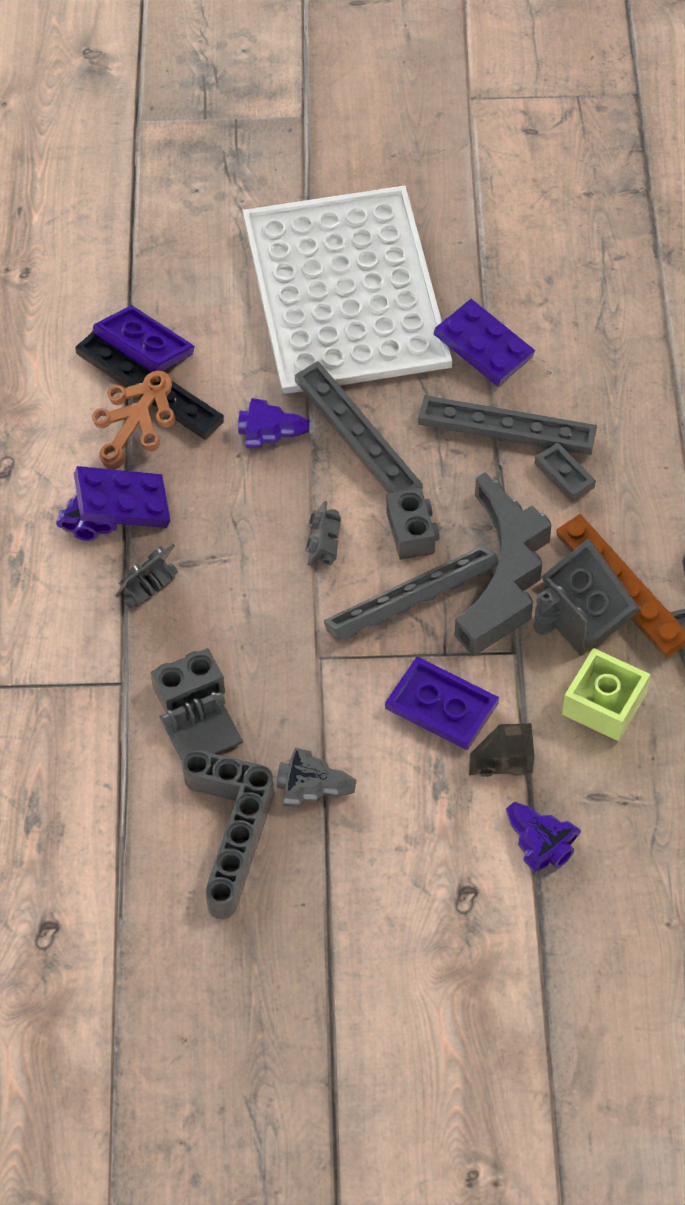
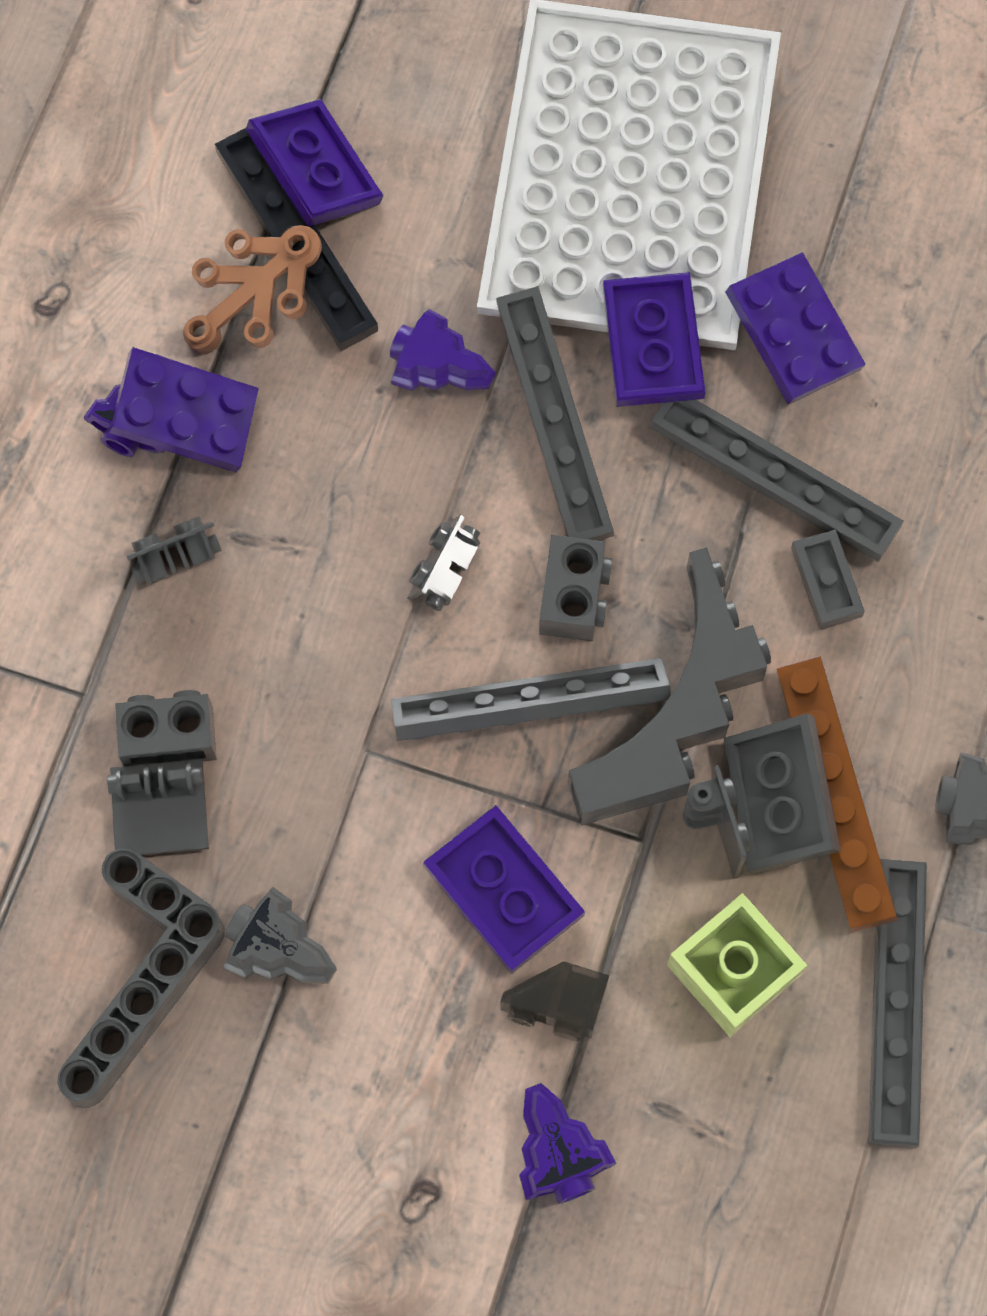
camera: 20 degrees right, 15 degrees up
(401, 372) = (653, 339): none -> dark purple tile

